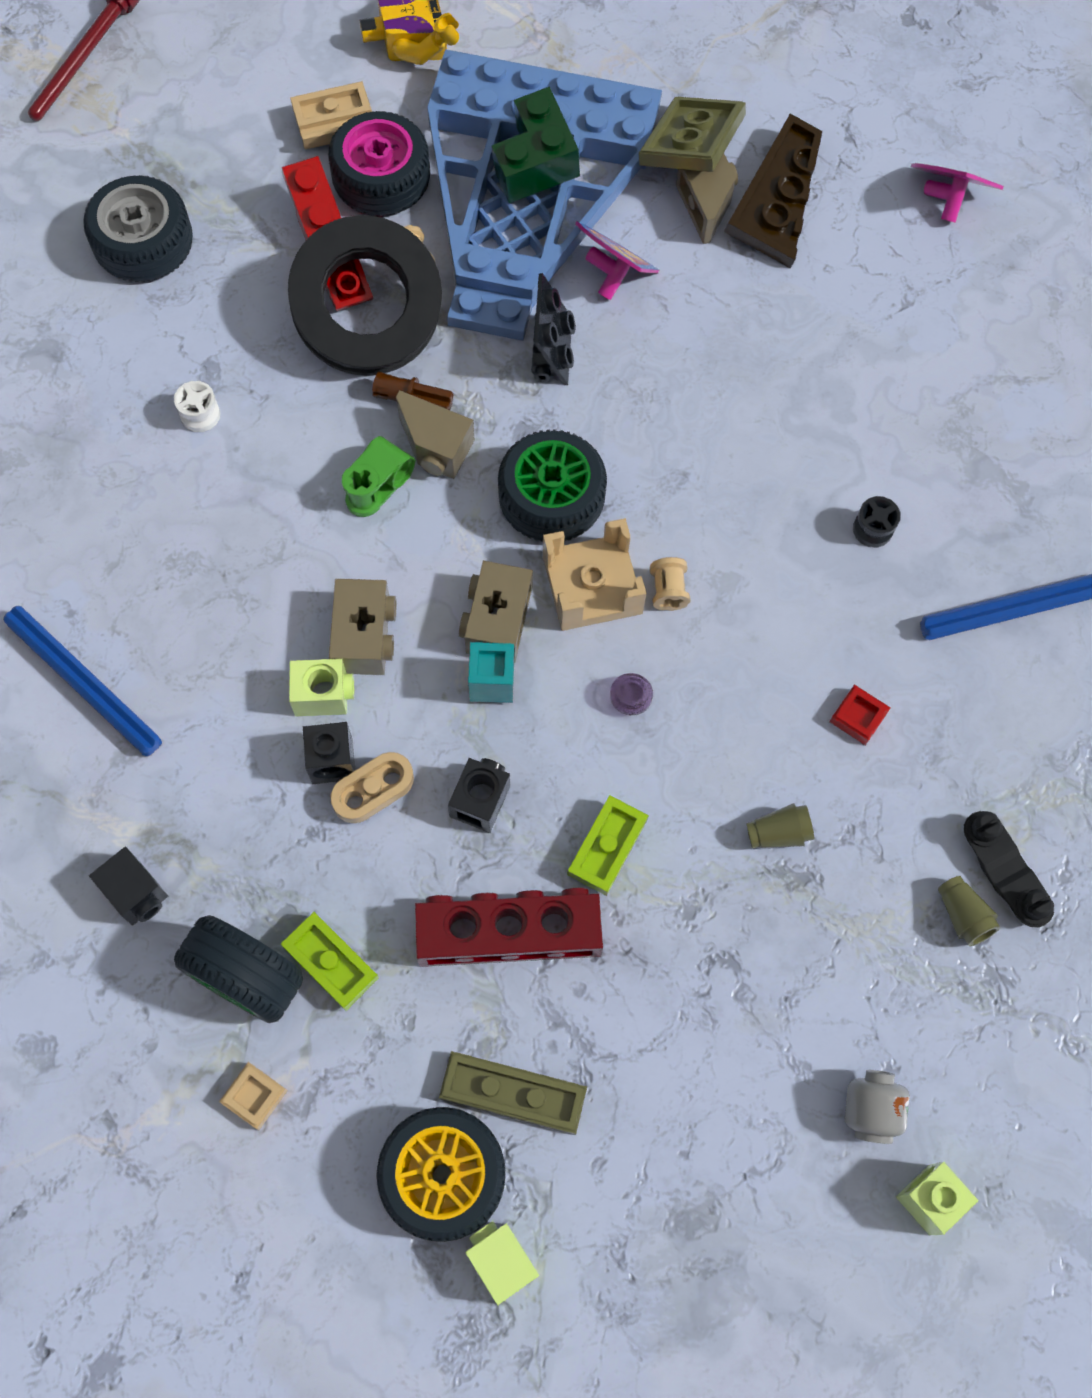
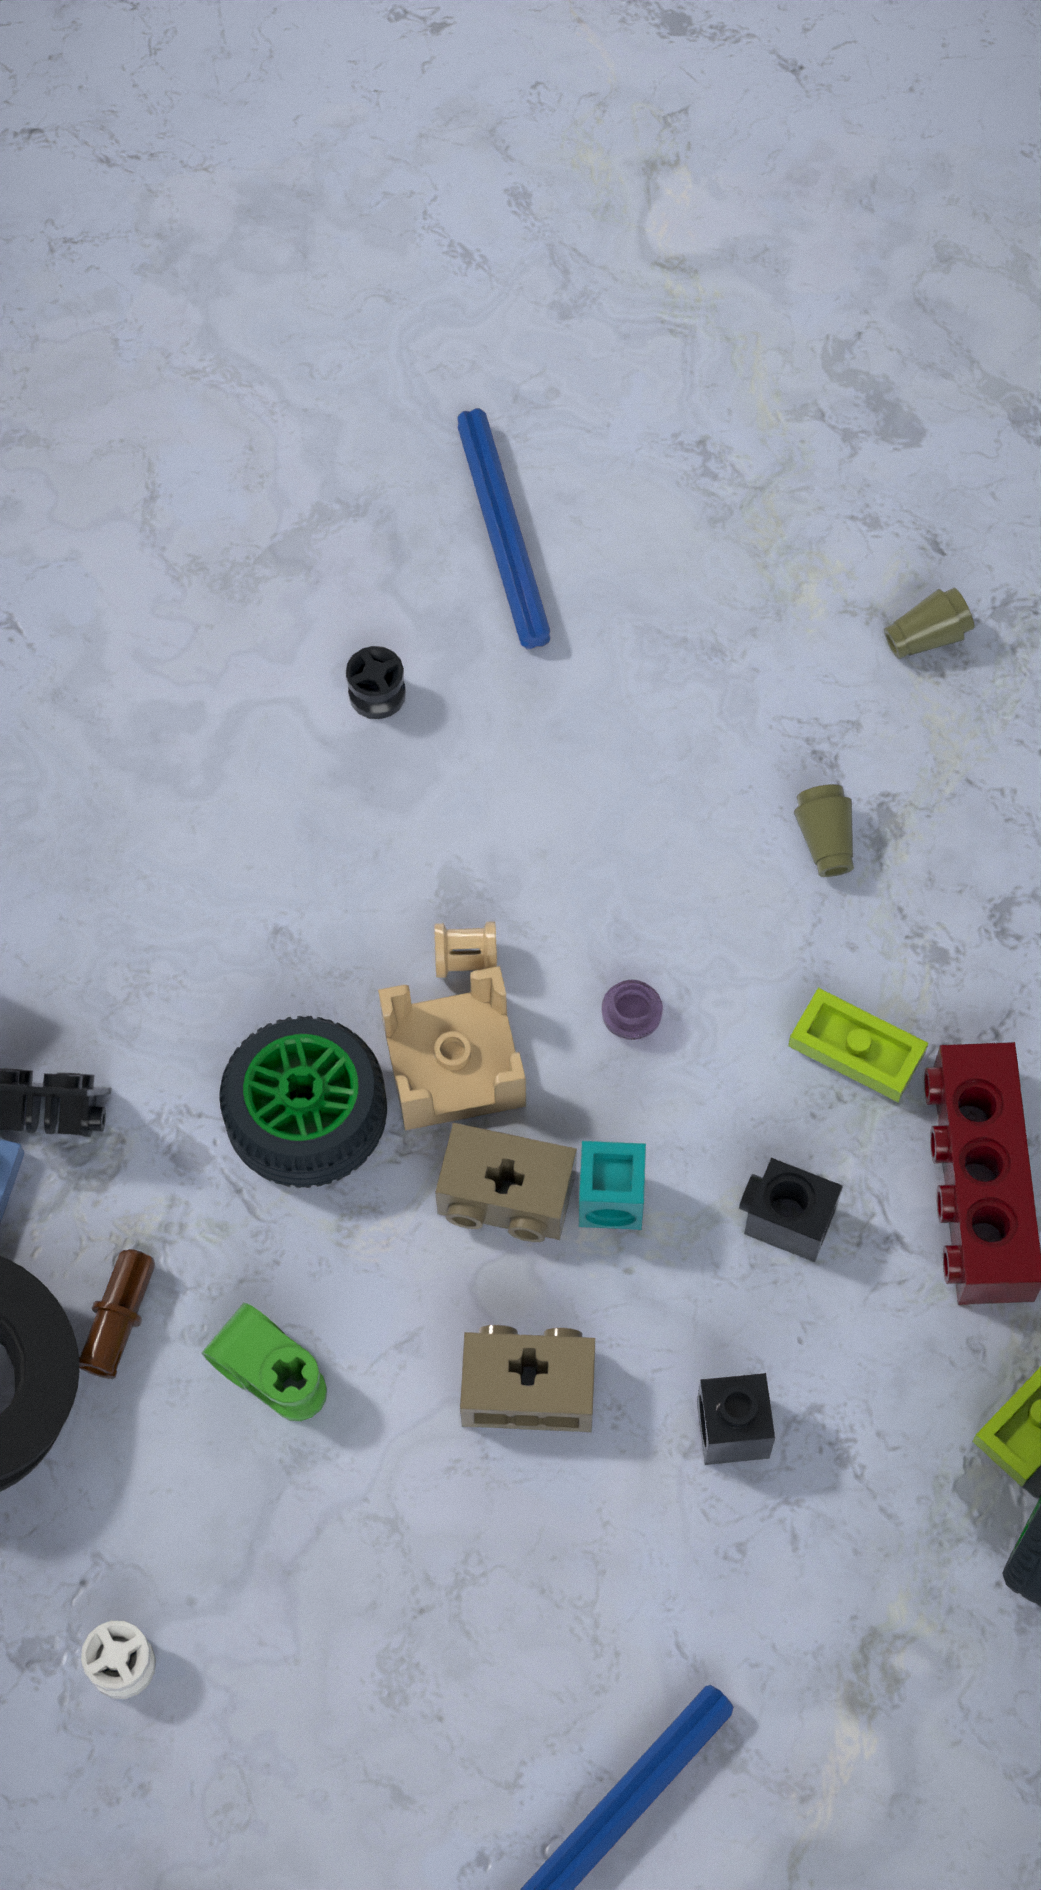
camera: 85 degrees left, 5 degrees down
(129, 887) = (950, 1709): black brick -> none
(307, 674) = (628, 1466): yellowish green brick -> none
(370, 786) = (785, 1362): tan plate -> none
(435, 434) = (201, 1276): dark tan slope -> none
(859, 714) = (659, 728): red tile -> none
(1007, 869) = (873, 577): black piece -> none

